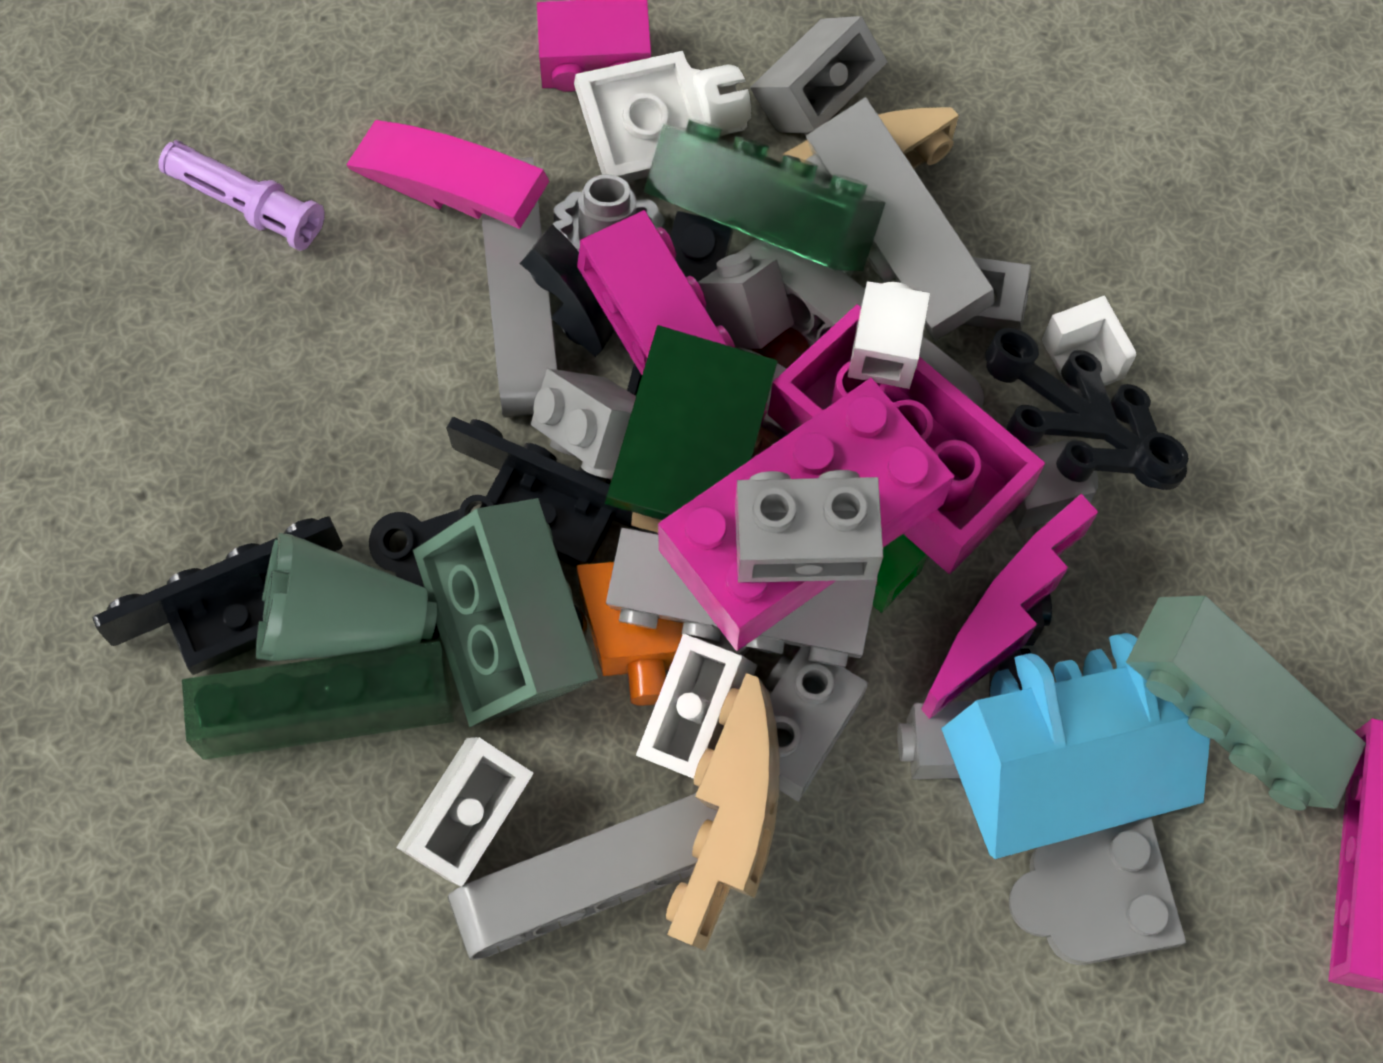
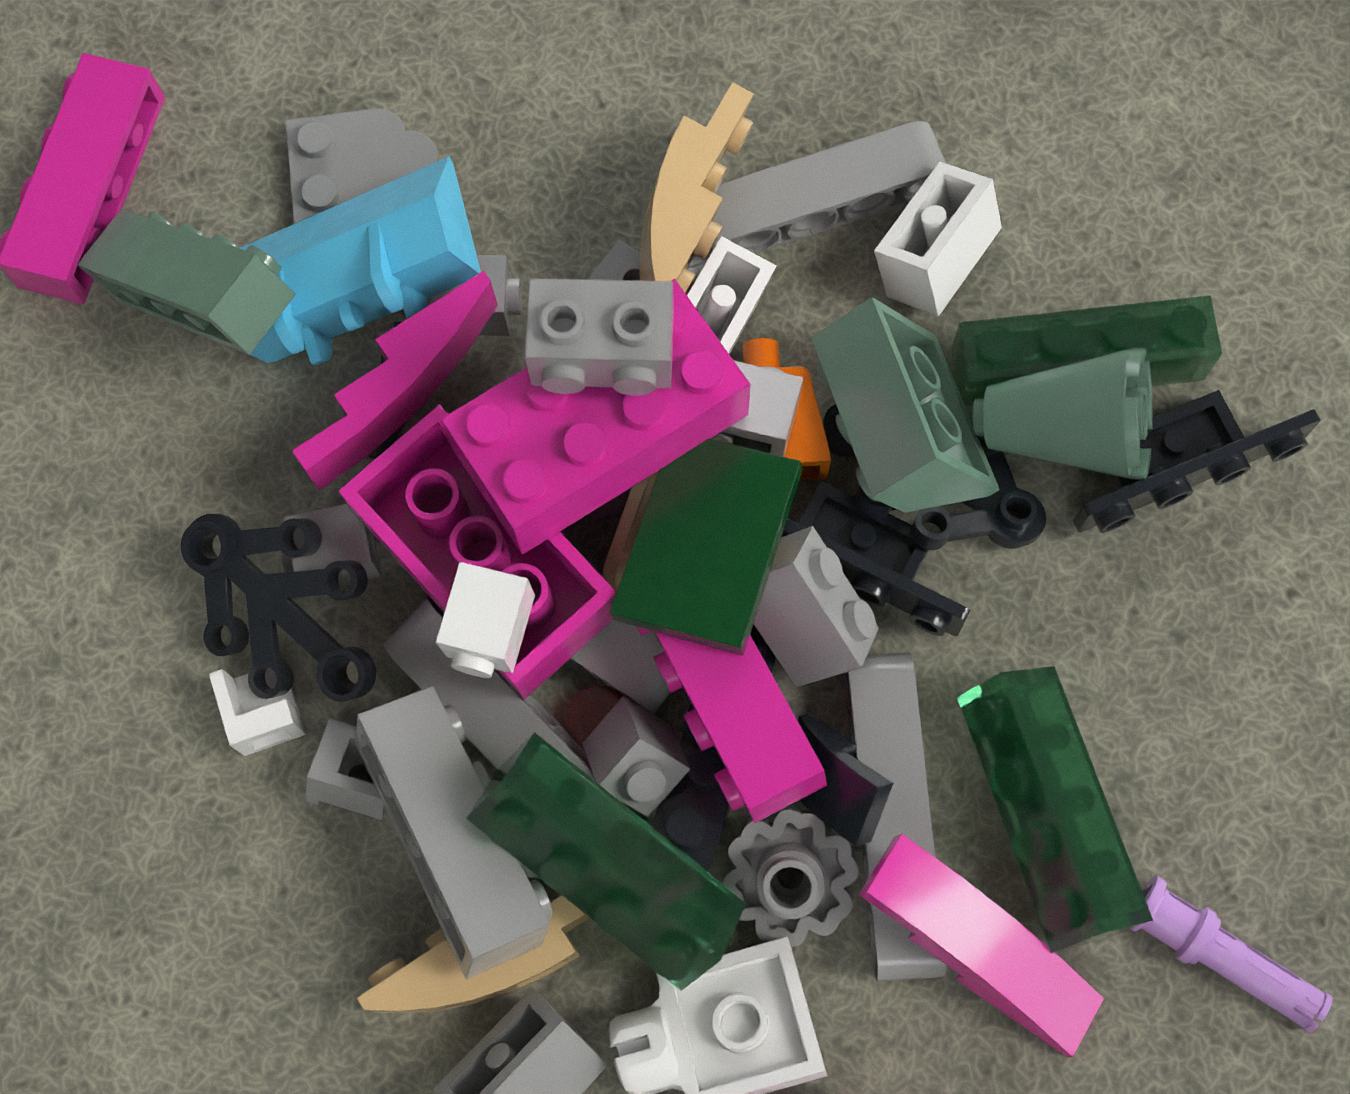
camera: 170 degrees left, 5 degrees up
(380, 281) = (1053, 808): none -> clear green brick

